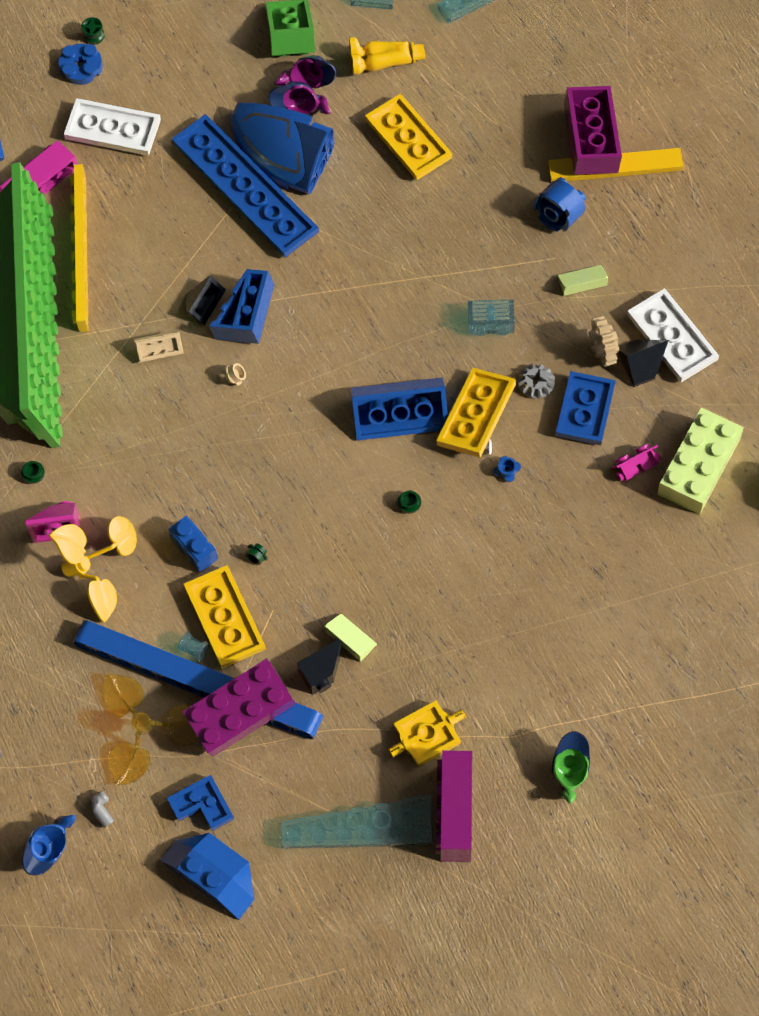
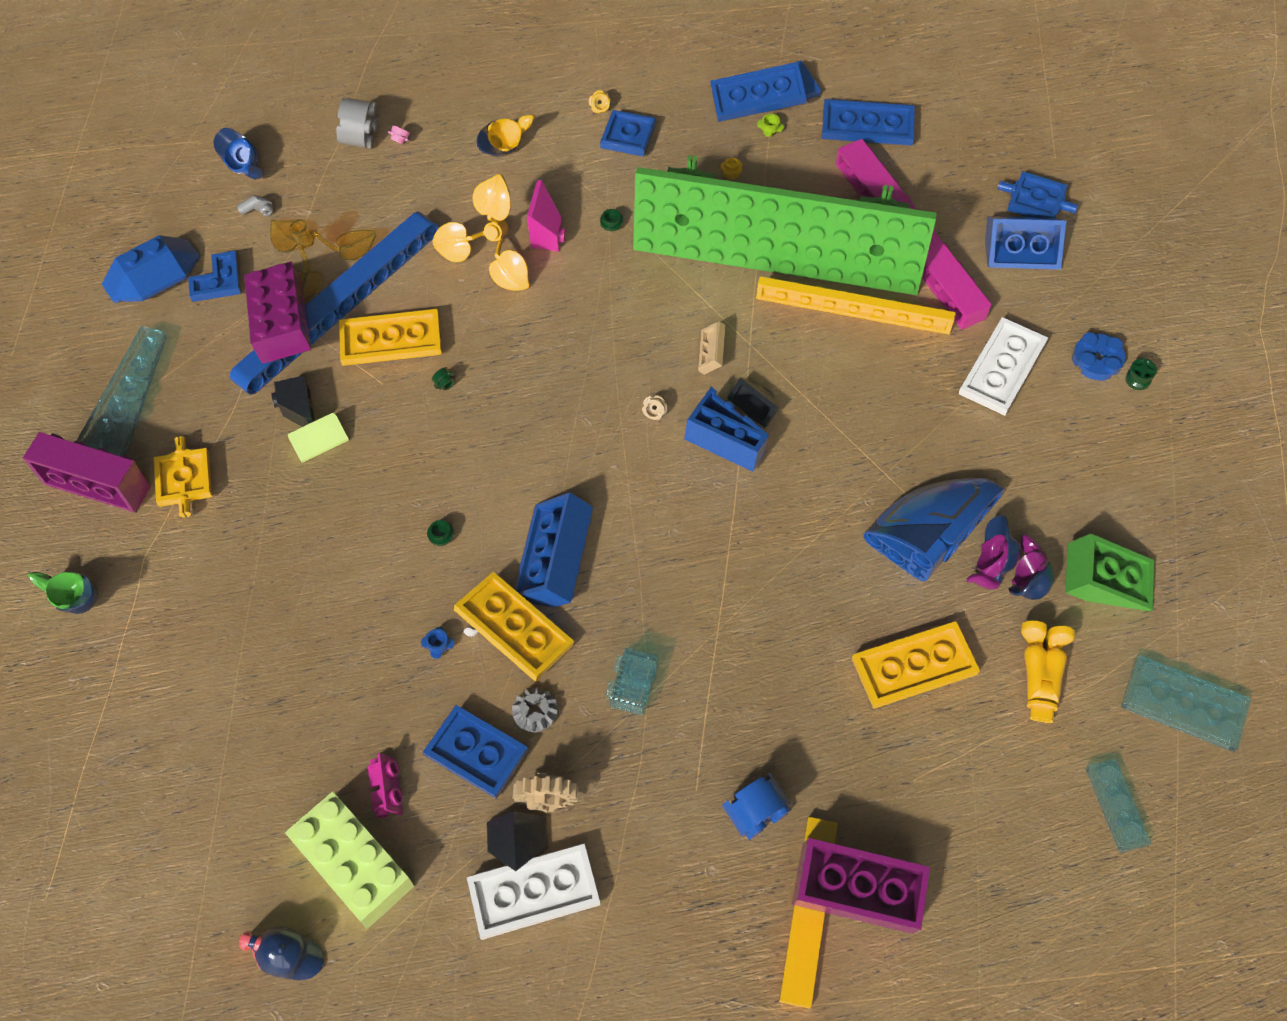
camera: 105 degrees right, 5 degrees down
(193, 544) = (475, 325): blue brick -> none
(193, 646) = (371, 303): clear light blue bush -> none
(245, 185) = (890, 474): blue plate -> none
(583, 280) = (652, 809): yellowish green slope -> none

